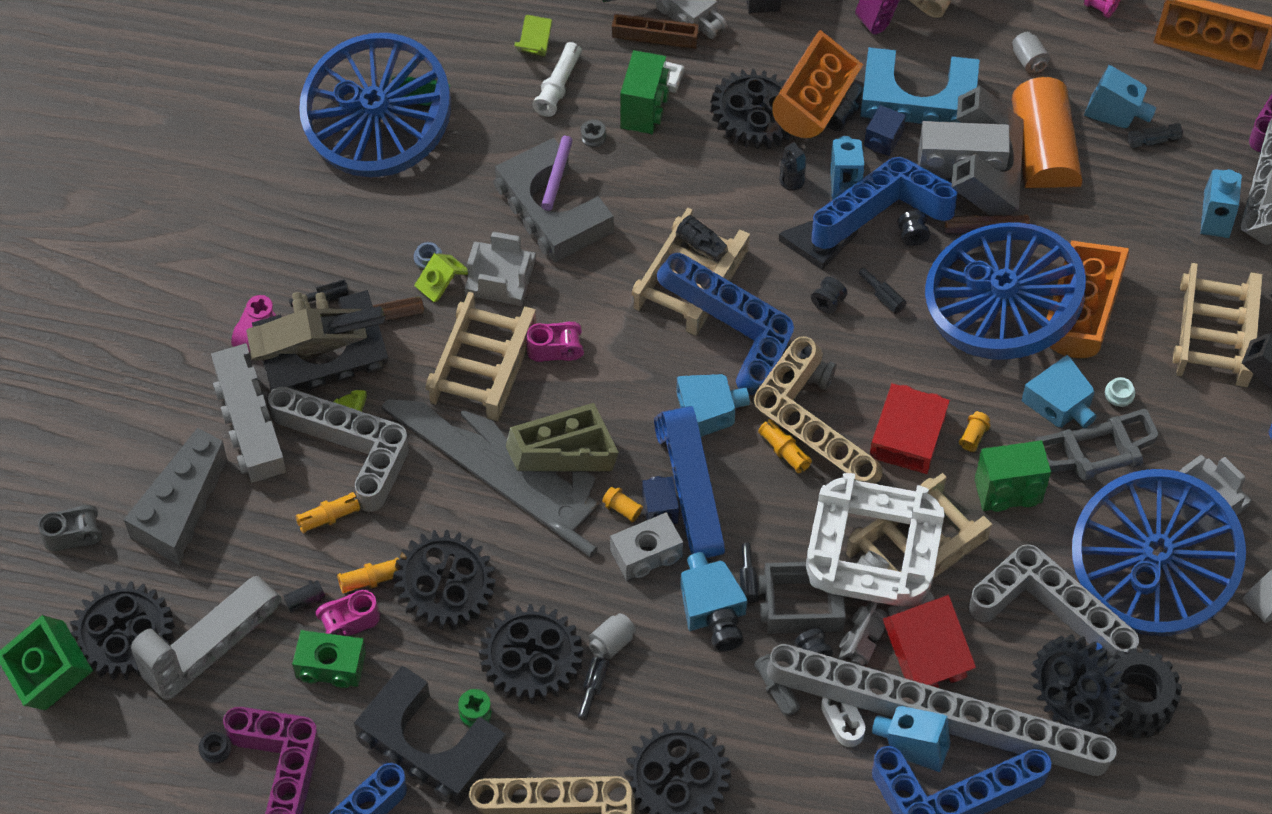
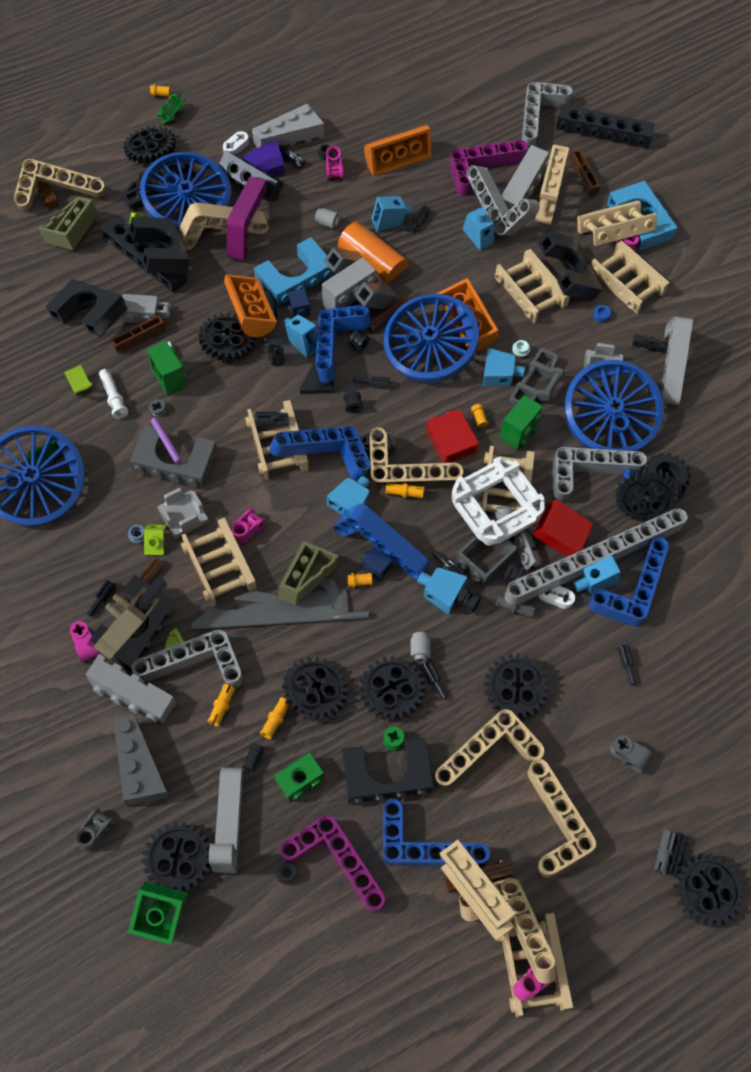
camera: 45 degrees left, 5 degrees up
(346, 614) = (285, 751): dark pink piece -> none
(655, 533) = (396, 580): light grey brick -> none

